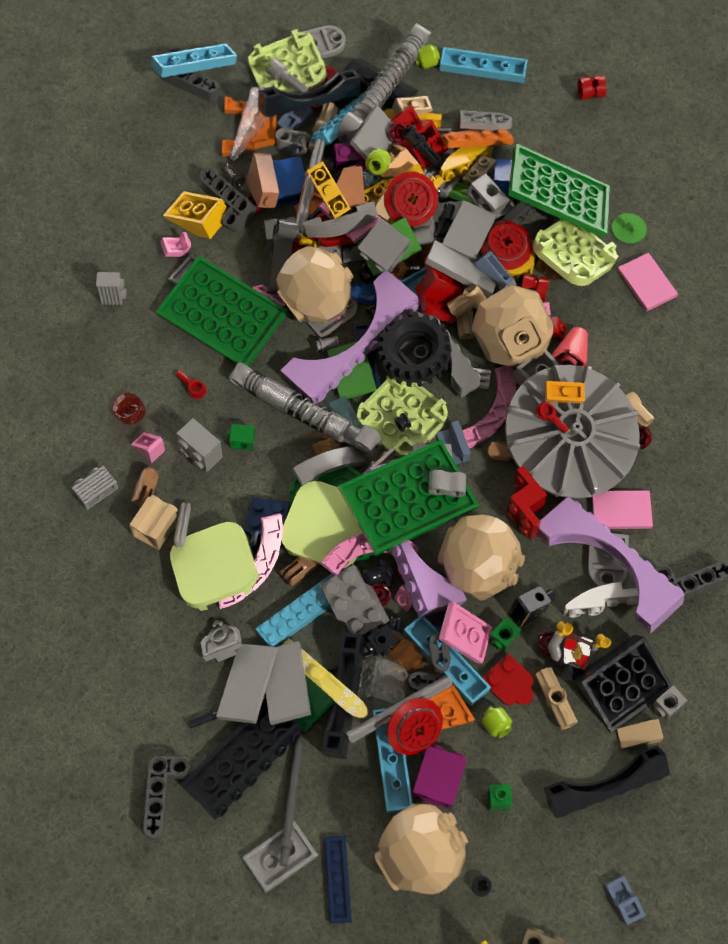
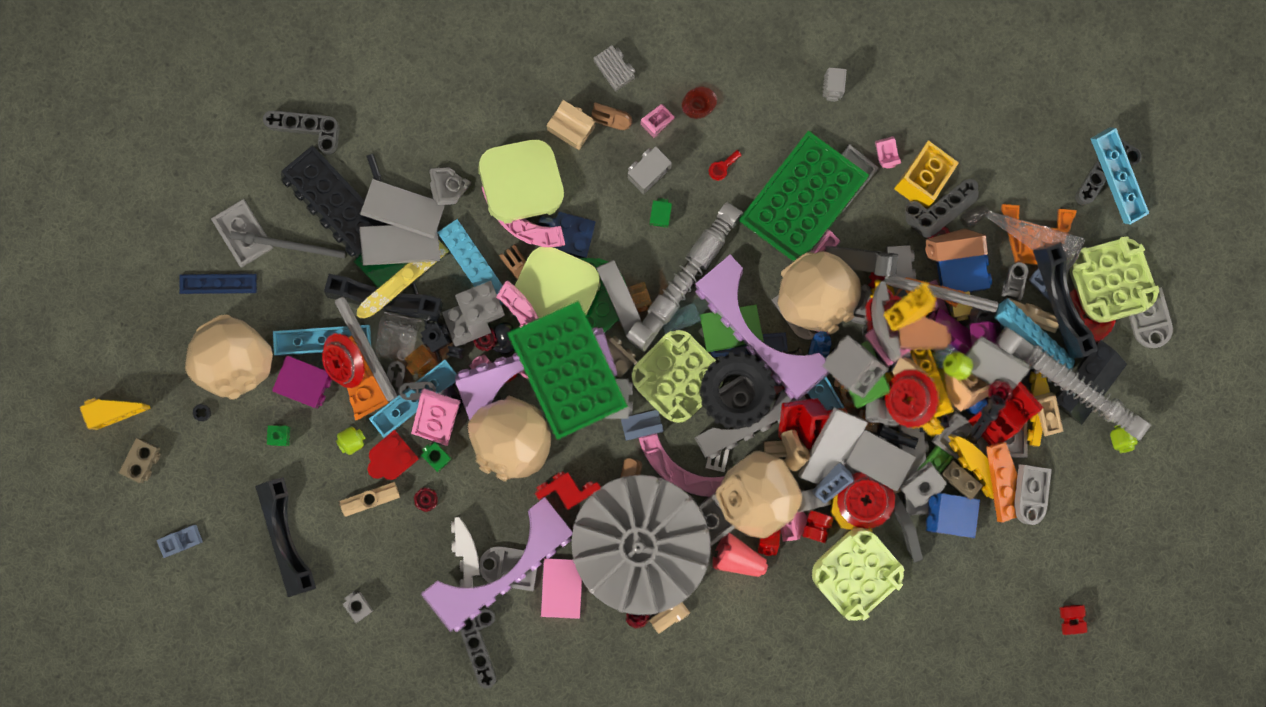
camera: 90 degrees right, 20 degrees up
(182, 525) = (567, 152): light grey axle -> none
(280, 72) = (1101, 269): light grey piece -> none
(328, 343) = (764, 305): light grey pin -> none
(402, 422) = (665, 374): black bush -> none
(447, 483) = (576, 407): light grey axle -> none
(483, 65) = (1111, 500): medium azure piece -> none
(531, 605) = (458, 478): black torso -> none
(546, 411) = (650, 515): red plate -> none
(559, 190) = (927, 563): green plate -> none
(564, 392) = (671, 536): light orange plate -> none
(573, 651) = (411, 520): torso -> none
(623, 682) = (381, 565): black slope -> none
(629, 228) = (891, 639): bright green piece -> none
(640, 734) = (331, 575): tan slope -> none
(647, 282) = (822, 650): bright pink tile -> none

